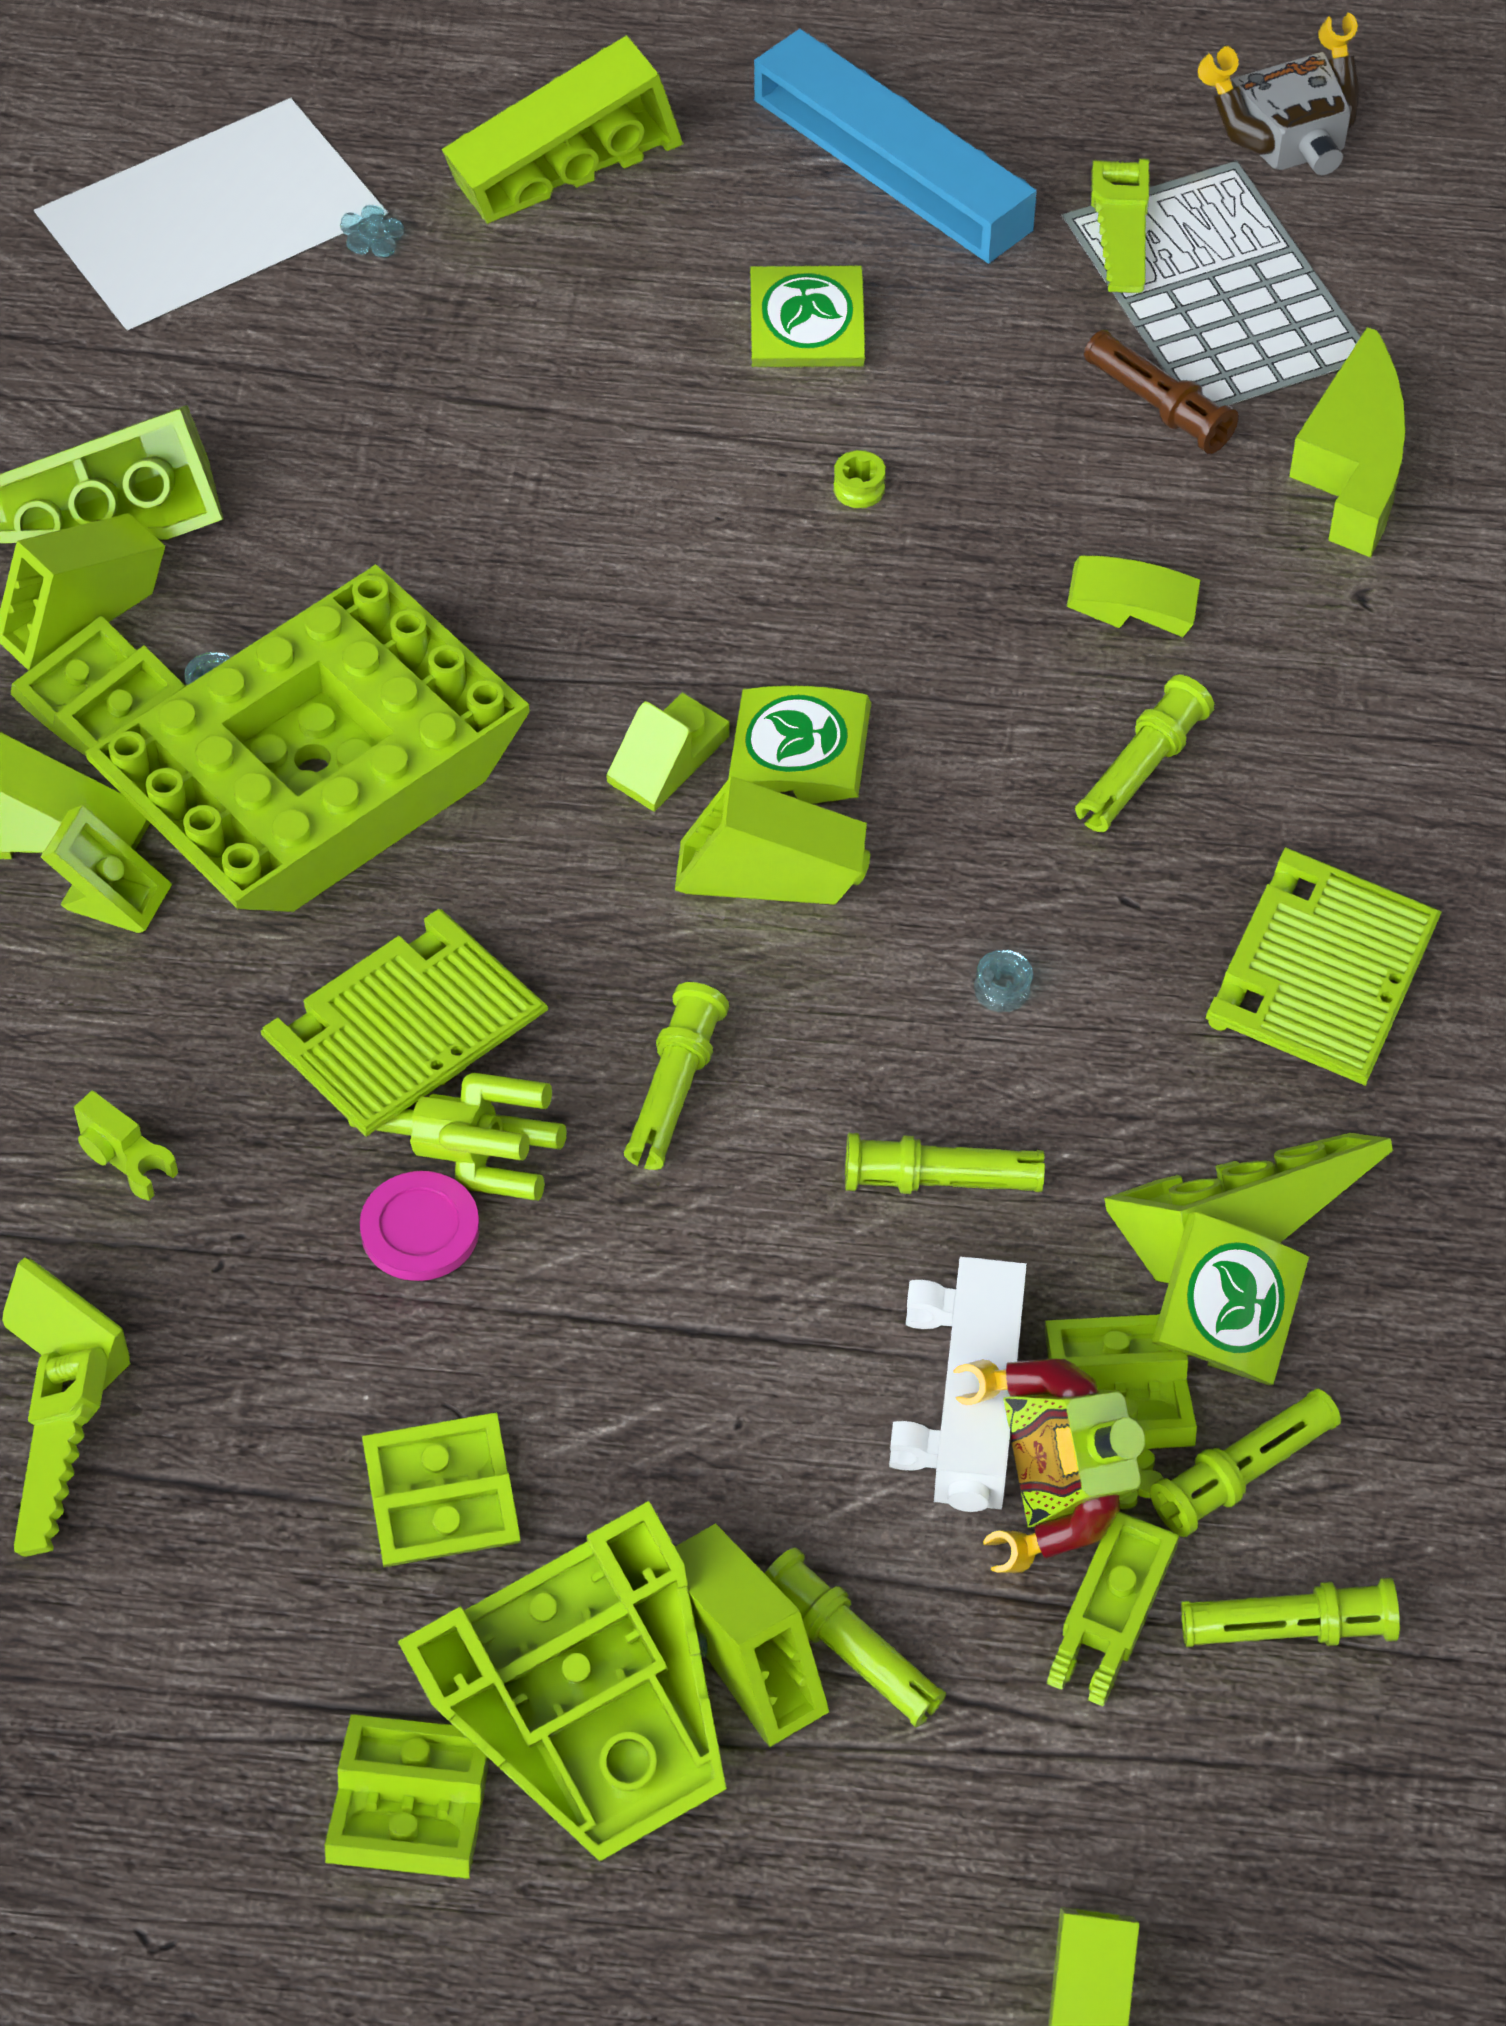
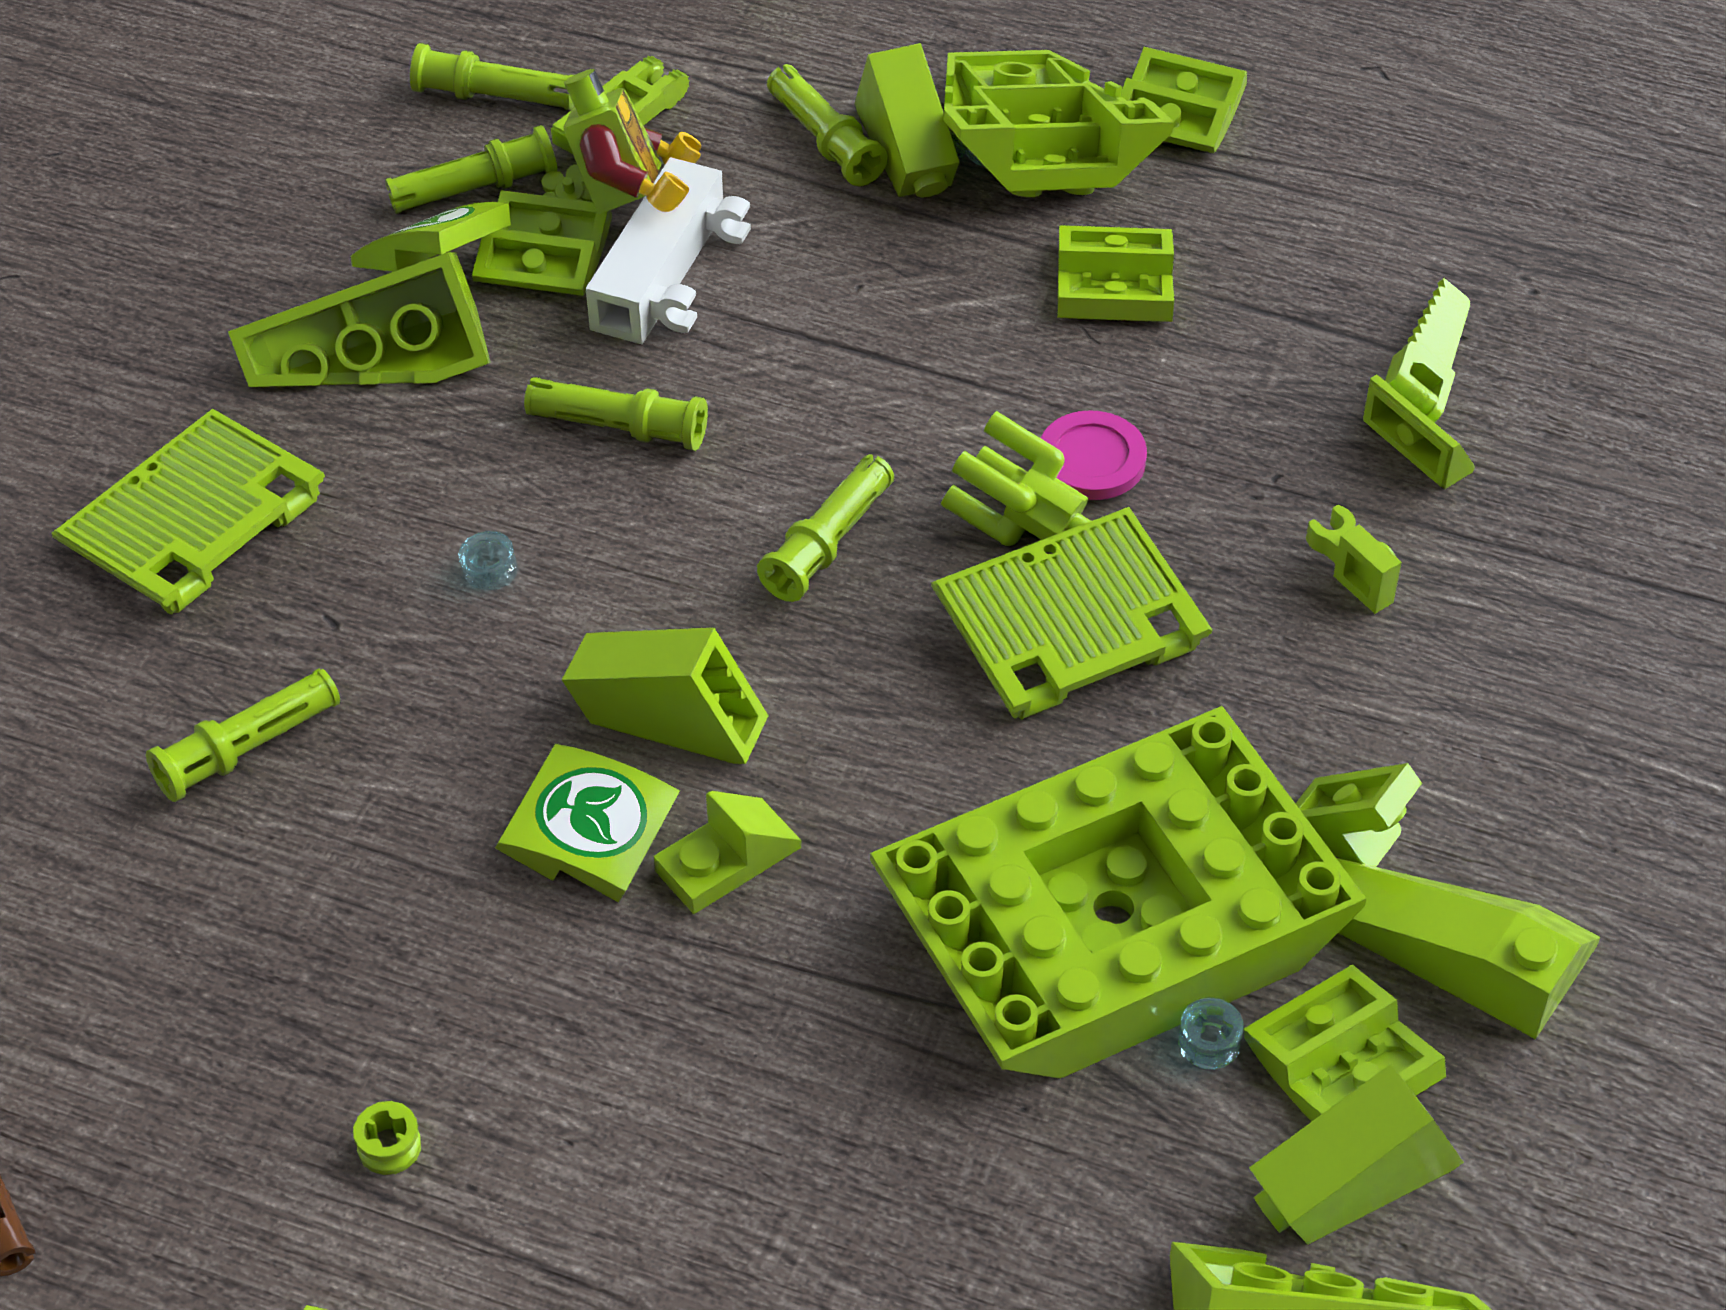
camera: 165 degrees left, 5 degrees down
(1122, 588) = (156, 911): lime slope -> none

